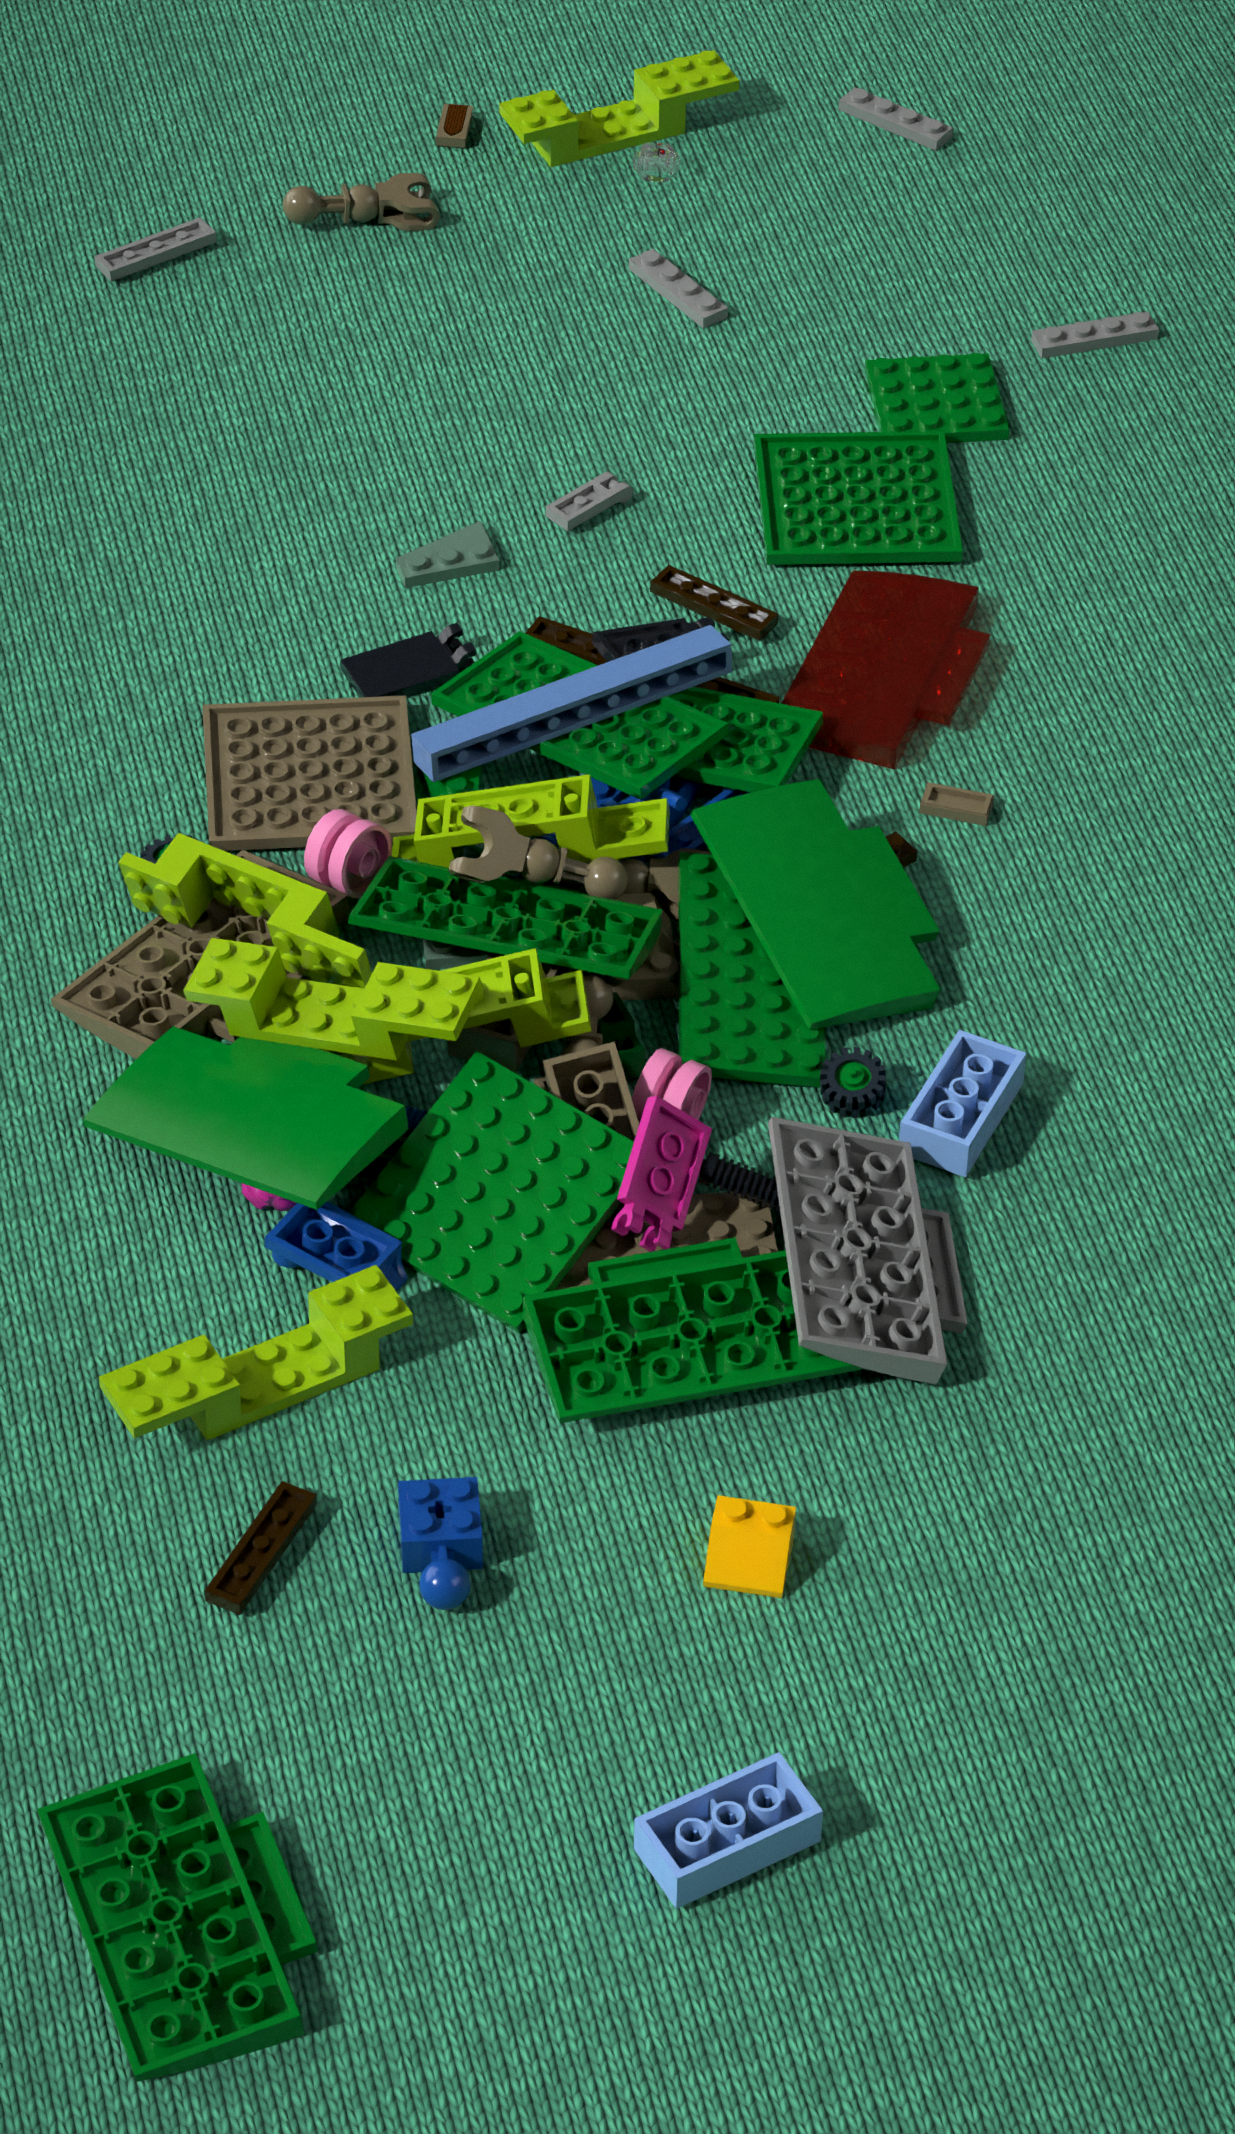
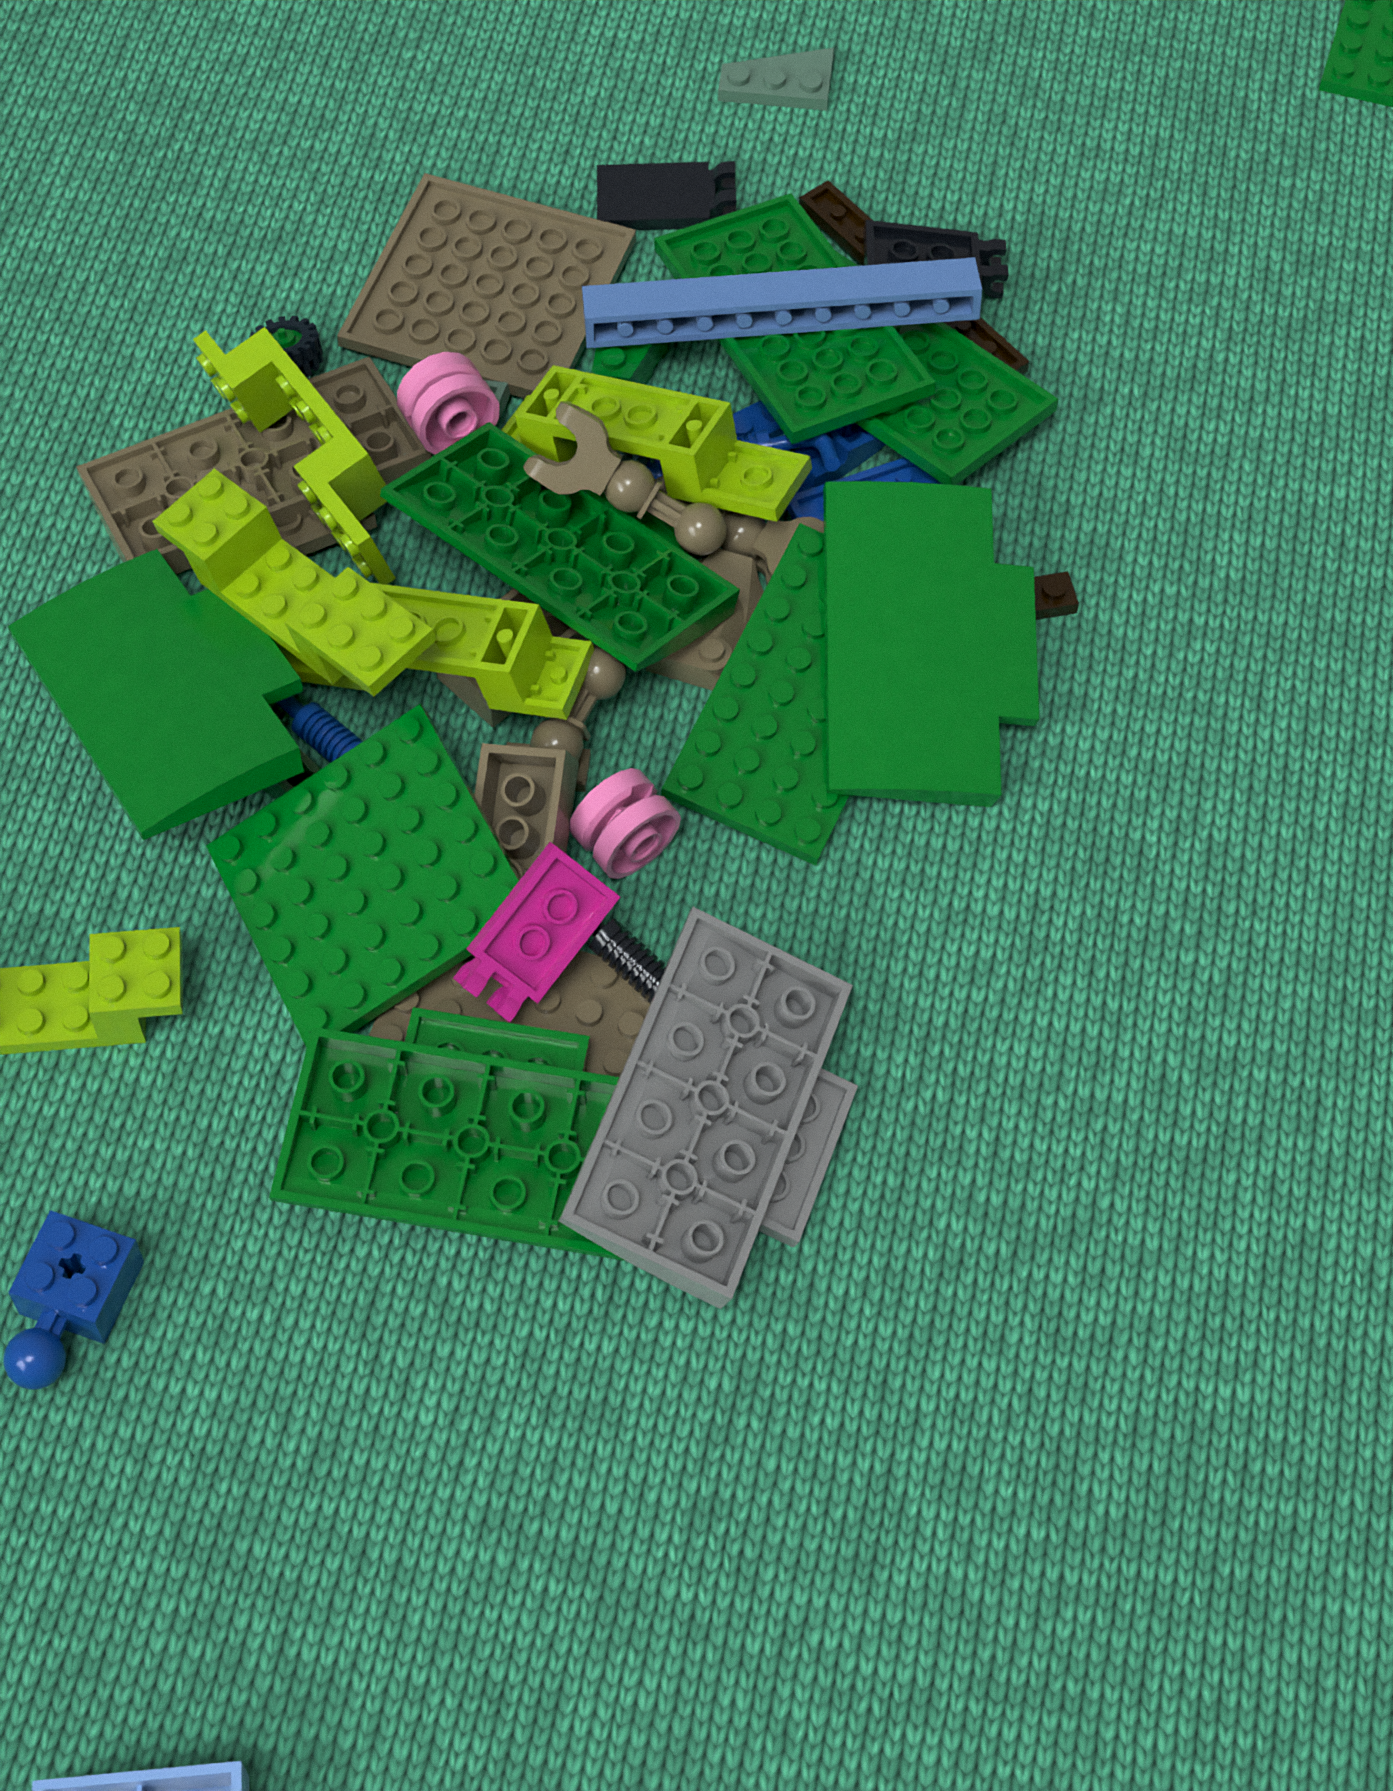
camera: 25 degrees right, 15 degrees up
(334, 1244) = (178, 886): blue slope -> none
(588, 500) = (961, 59): light grey plate -> none
(620, 1027) = (619, 725): dark green slope -> none
(714, 602) = (1026, 223): dark brown plate -> none
(749, 1546) = (389, 1446): yellow slope -> none
(853, 1082) = (841, 877): black wheel -> none
(856, 498) = (1251, 145): green plate -> none
(886, 660) = (1174, 359): clear red slope -> none
(957, 804) = (1158, 558): dark tan tile -> none
(963, 1102) = (944, 951): light blue brick -> none

